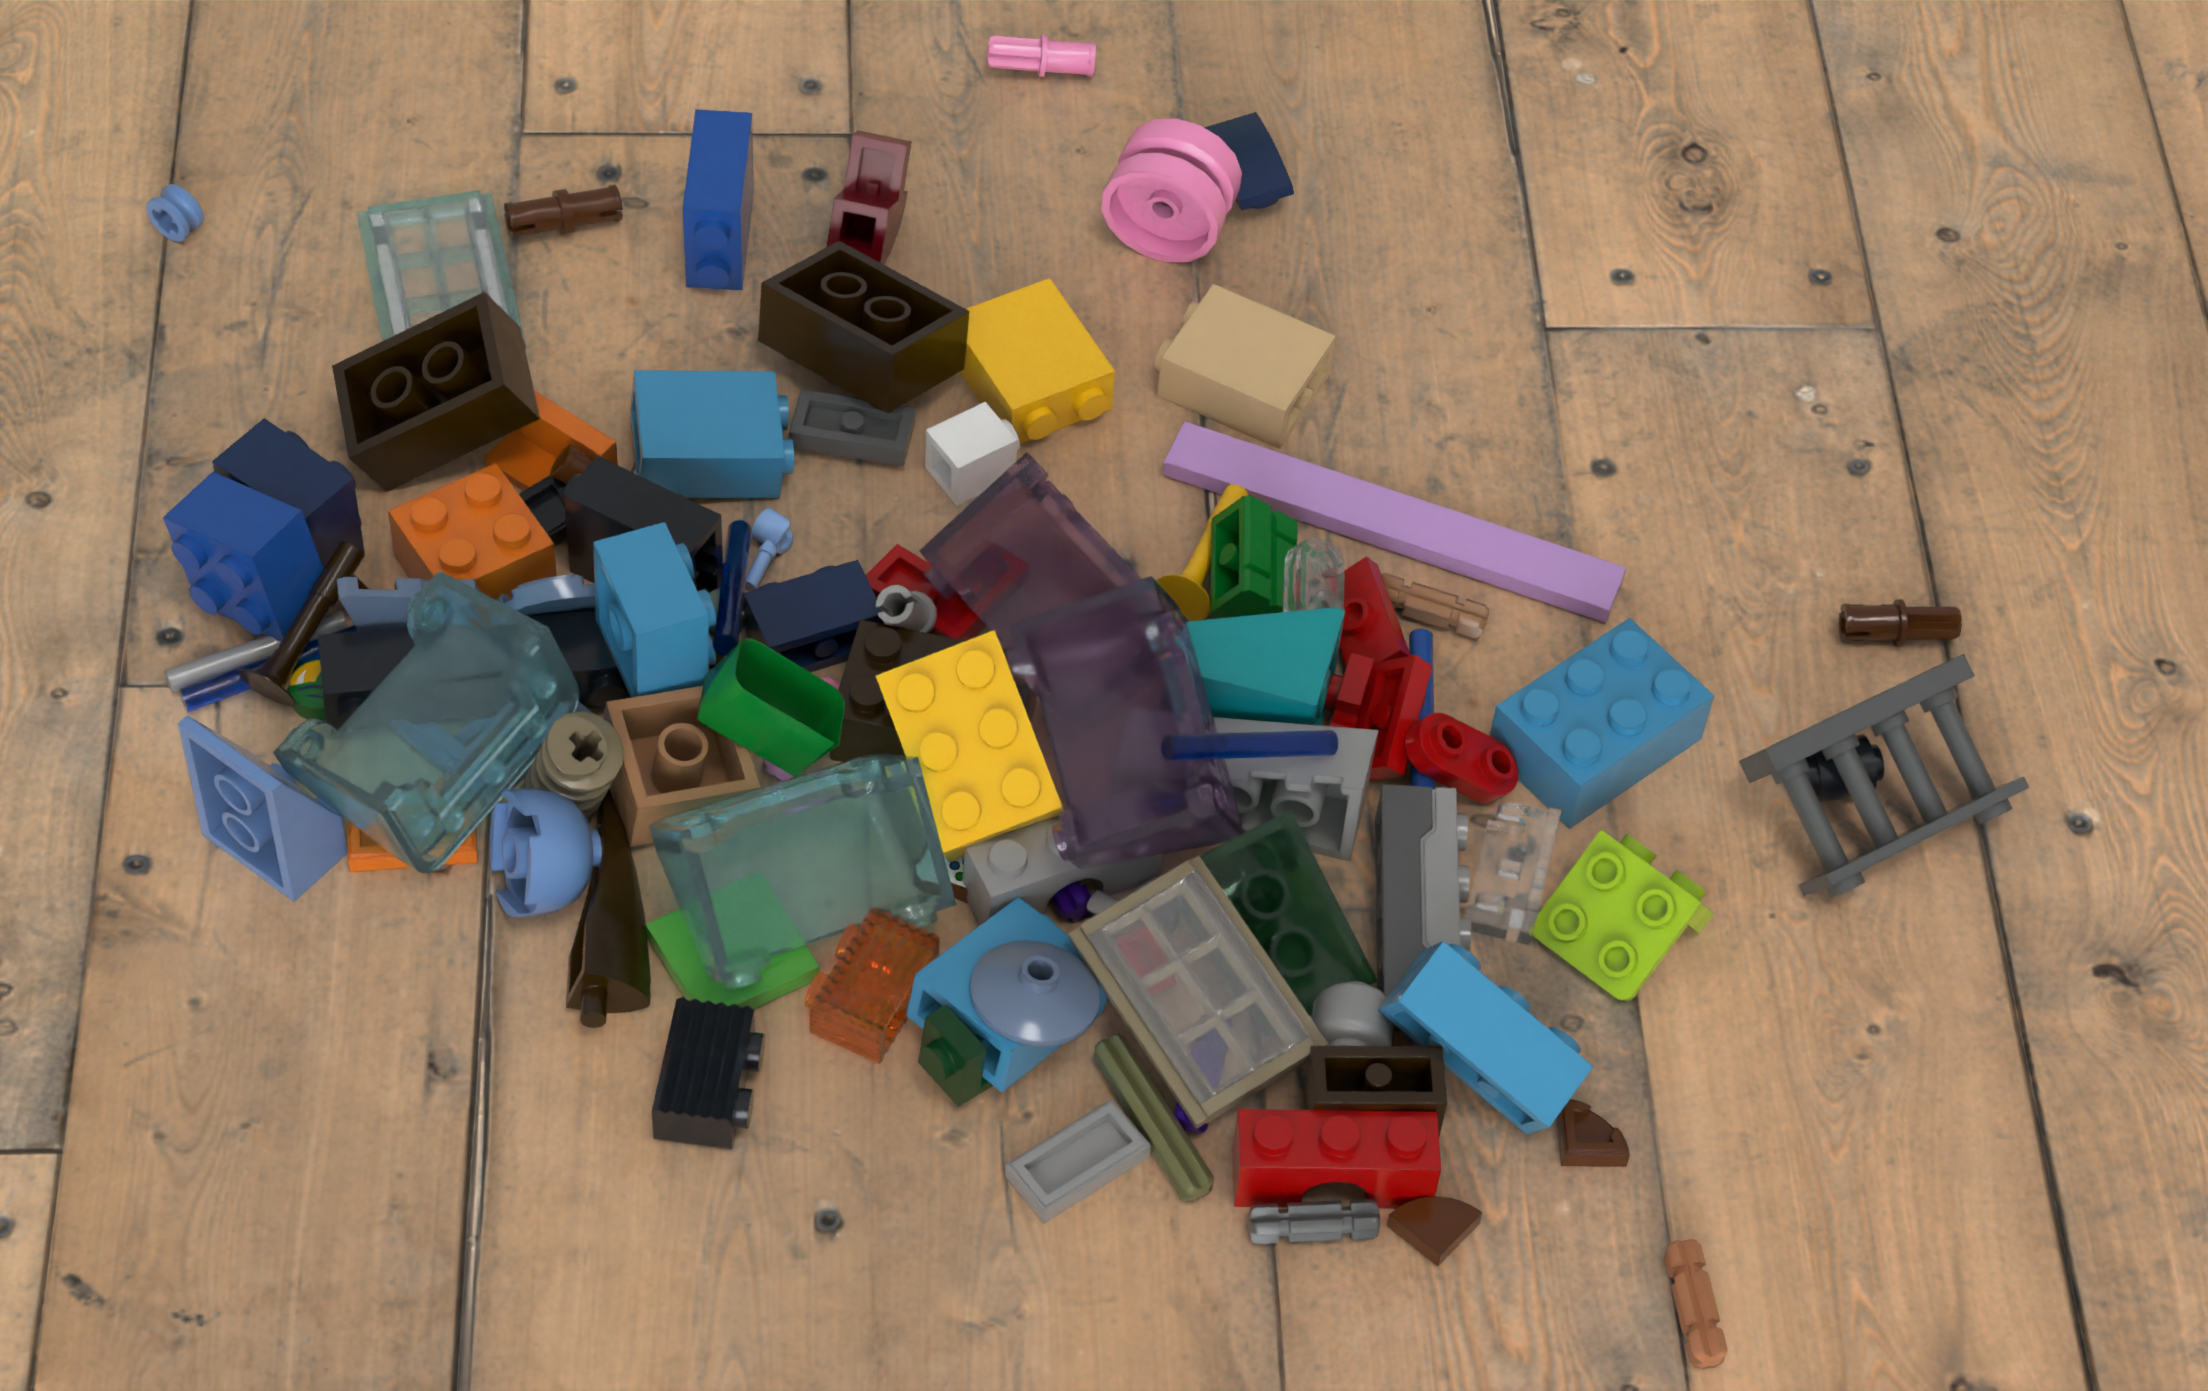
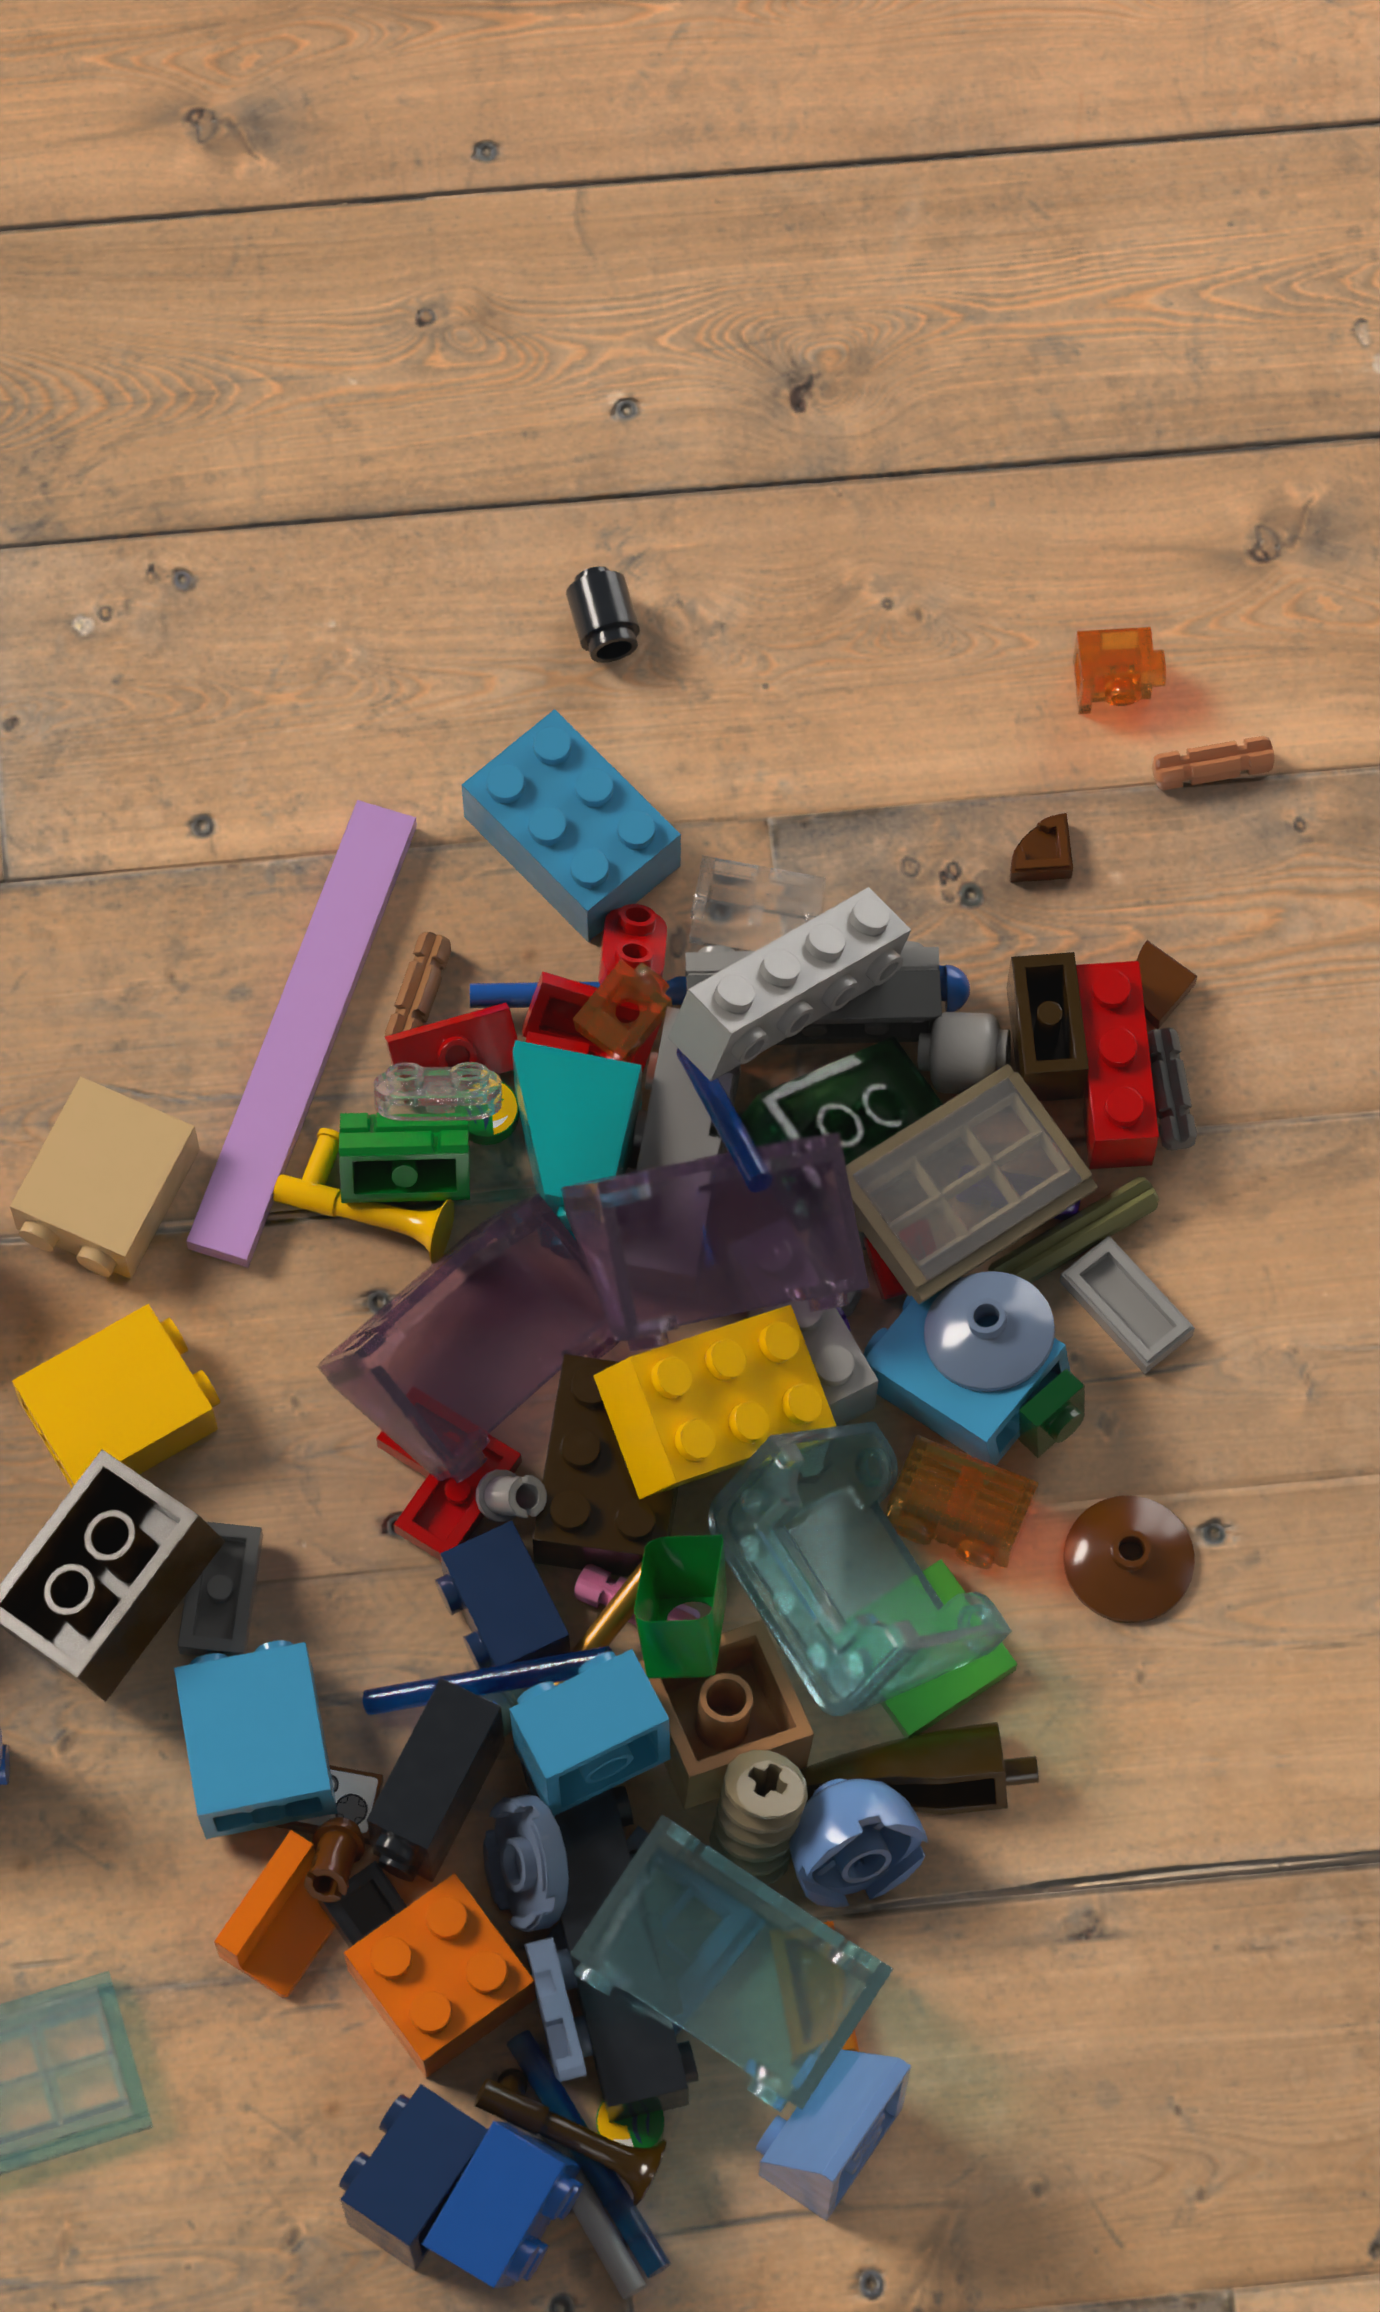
camera: 90 degrees left, 15 degrees up
(435, 392) = (247, 2033): dark brown brick -> none
(706, 1073) = (1085, 1652): black brick -> none
(776, 537) = (378, 1659): light blue hand -> none
(812, 1162) = (1121, 1587): none -> reddish brown dish
(970, 452) = (253, 1457): white brick -> none
(1381, 701) = (624, 984): none -> clear orange brick
(1395, 818) = (789, 984): none -> light grey brick
(1487, 1036) = (983, 921): dark azure brick -> none
(1619, 914) = (798, 806): lime bracket -> none
(1799, 1209) = (1116, 667): none -> clear orange brick
(1837, 741) = (594, 590): dark grey fence -> none
(1898, 623) = (405, 549): reddish brown axle -> none

